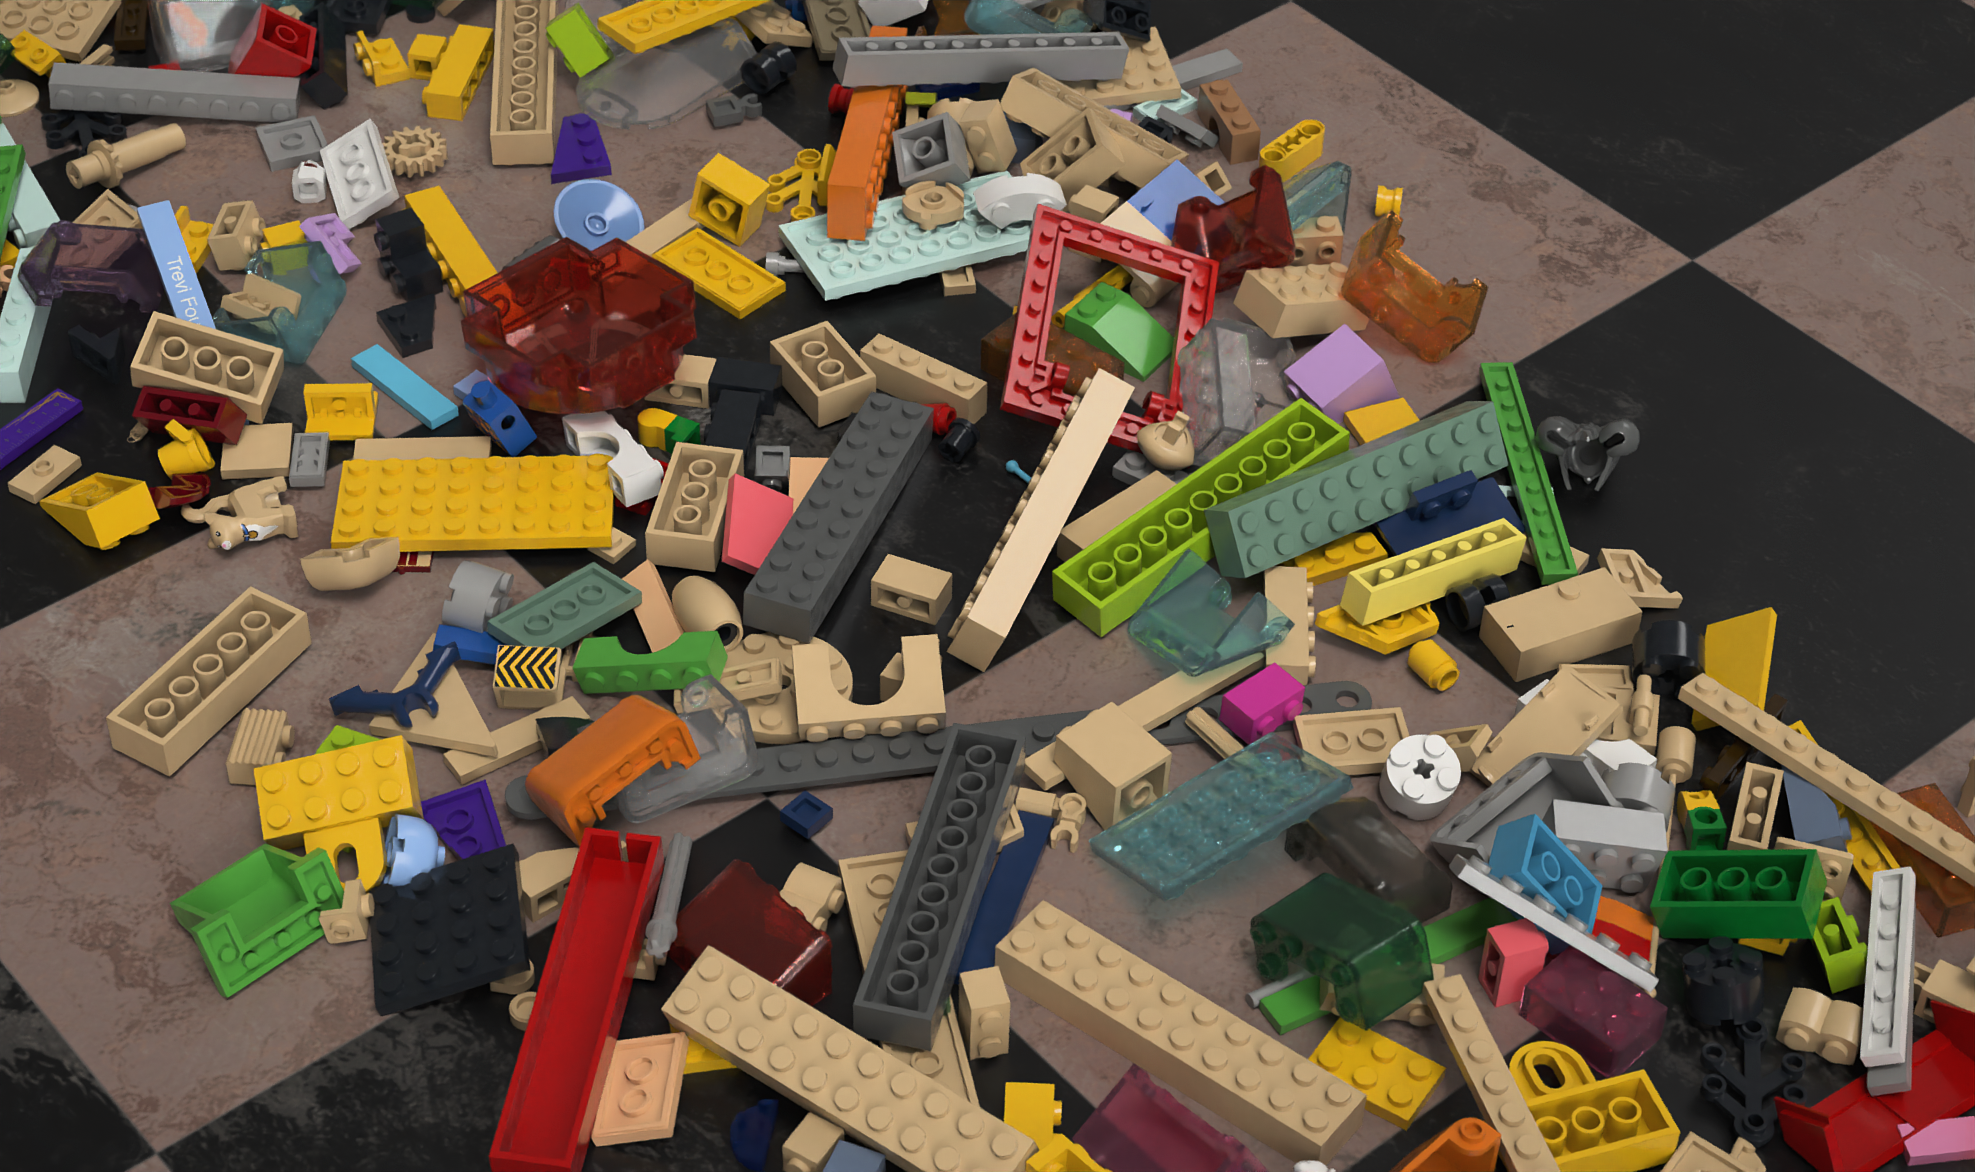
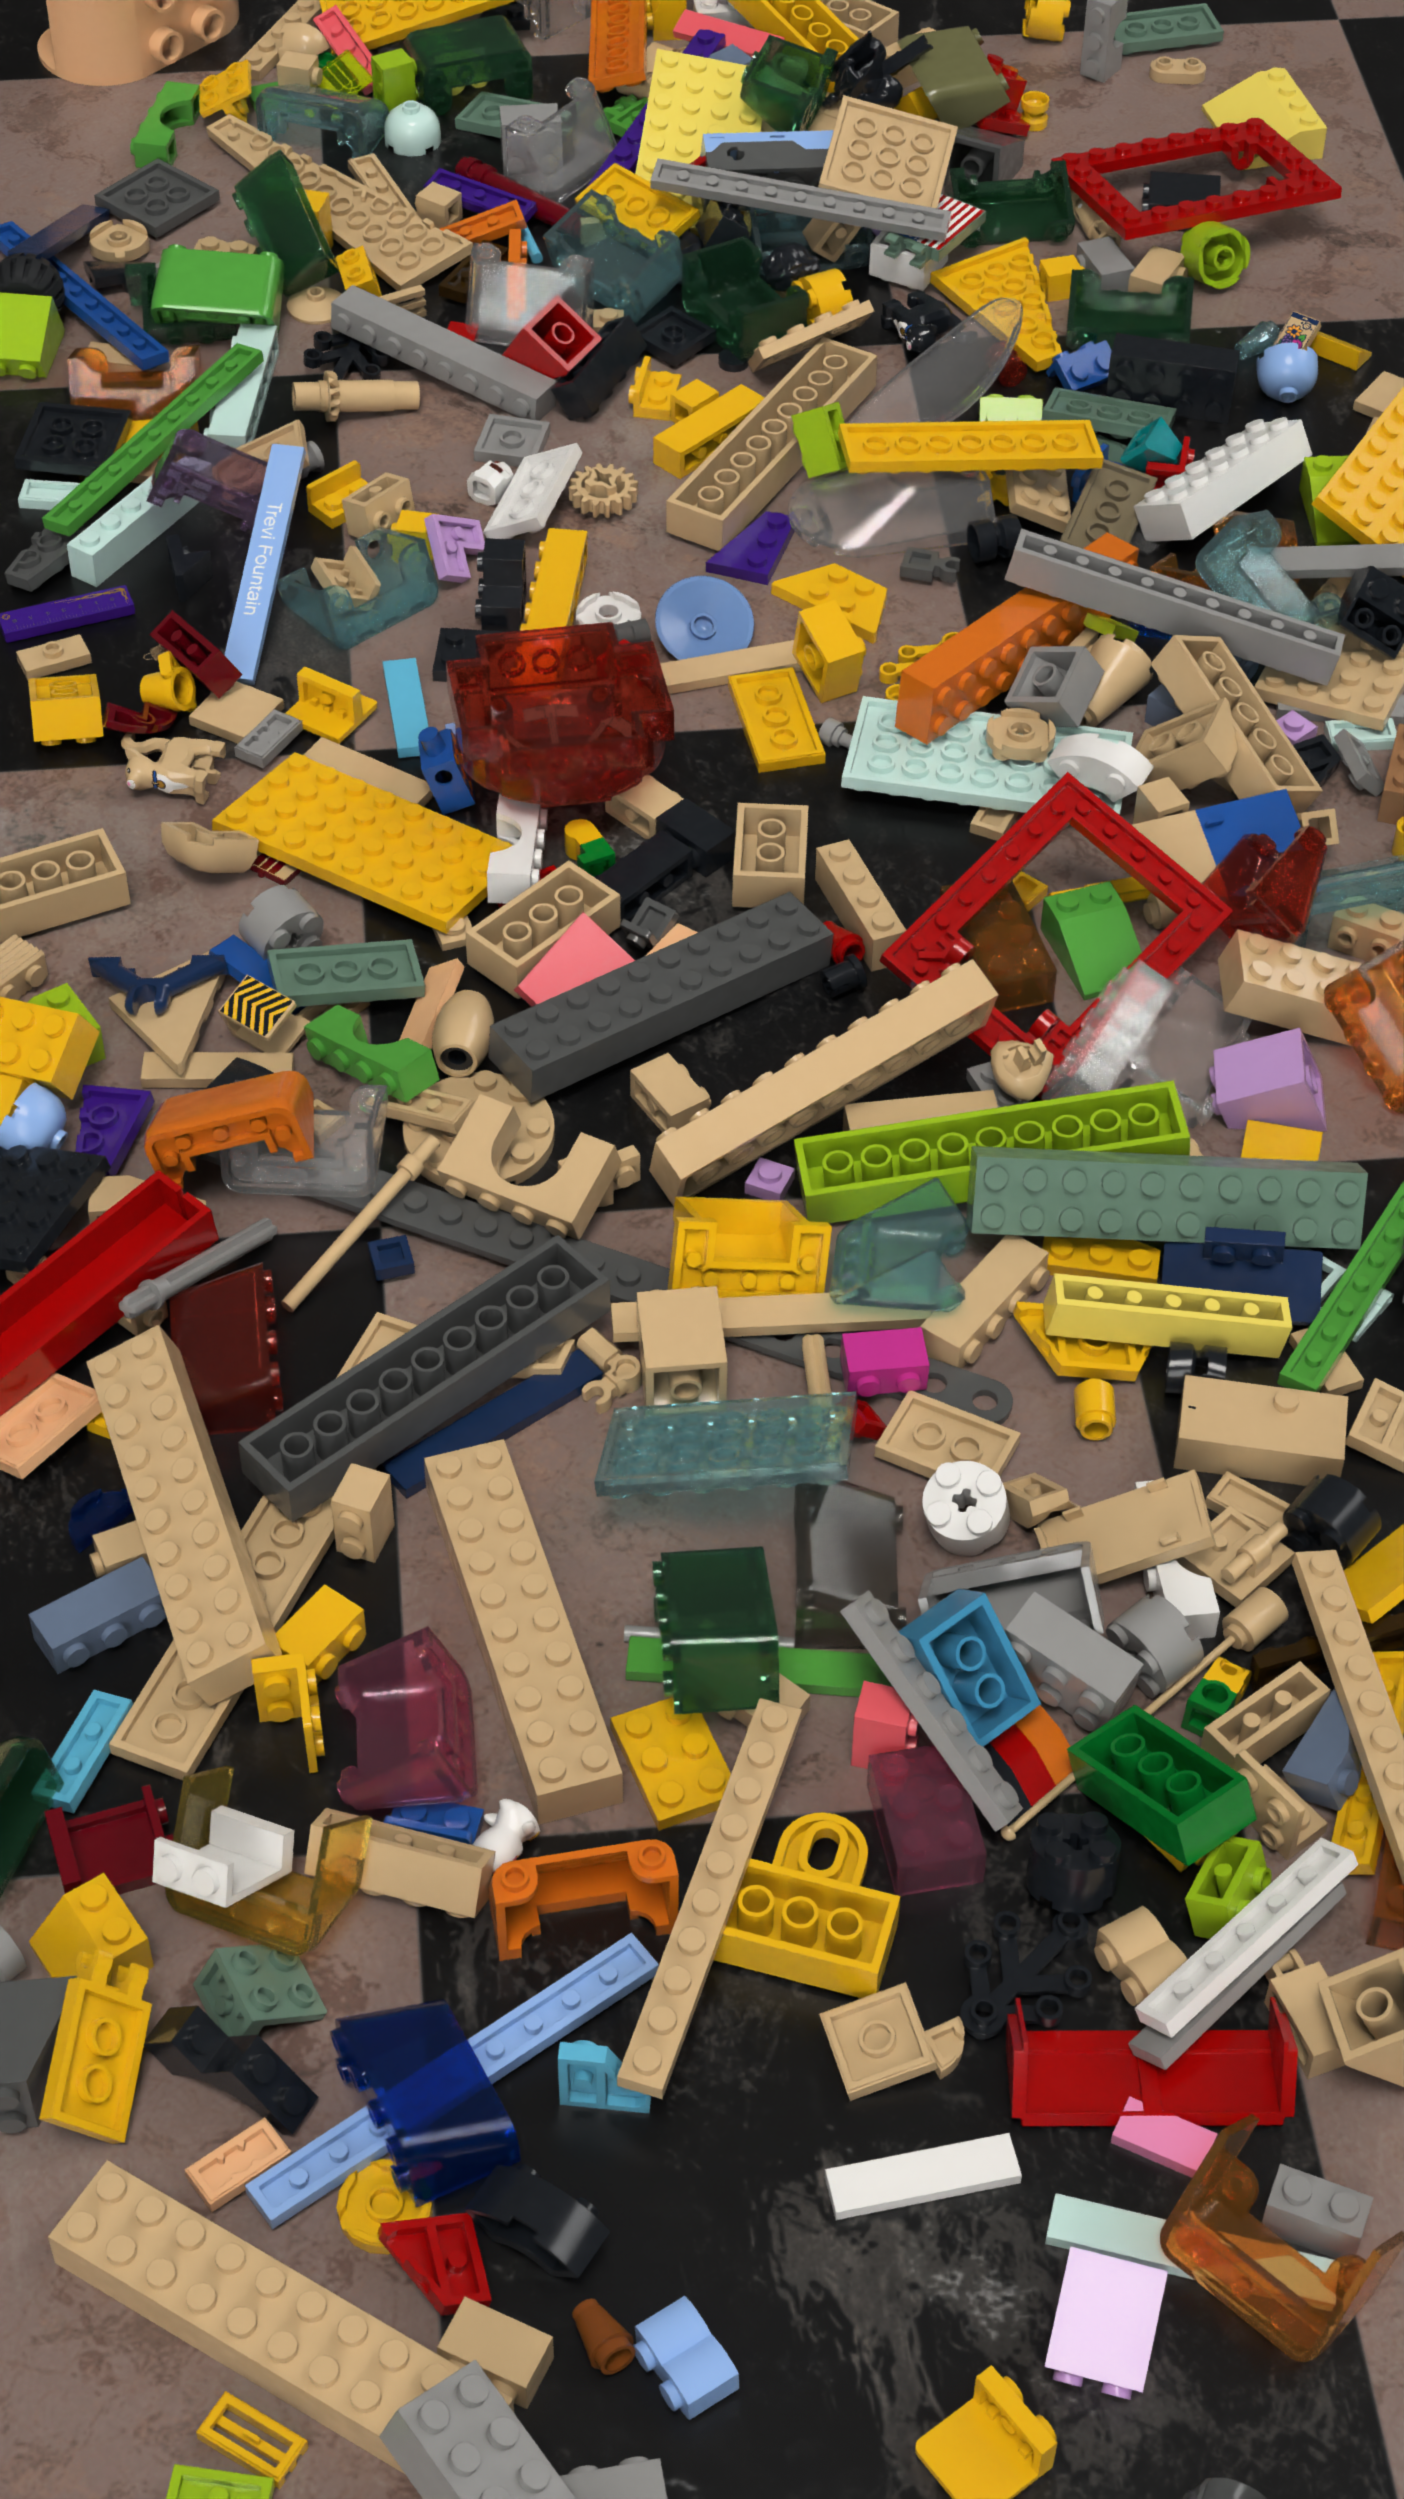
camera: 35 degrees right, 5 degrees up
(207, 362) = (234, 615): tan brick -> none
(502, 237) = (595, 607): none -> white tile
(671, 159) = (854, 594): none -> yellow wing
(770, 737) = (408, 1169): none -> tan bar
(814, 893) = (314, 1336): tan brick -> none
(988, 136) = (1129, 689): tan brick -> none
(1041, 617) = (769, 1180): none -> lavender plate
(1087, 667) = (747, 1247): none -> yellow windscreen

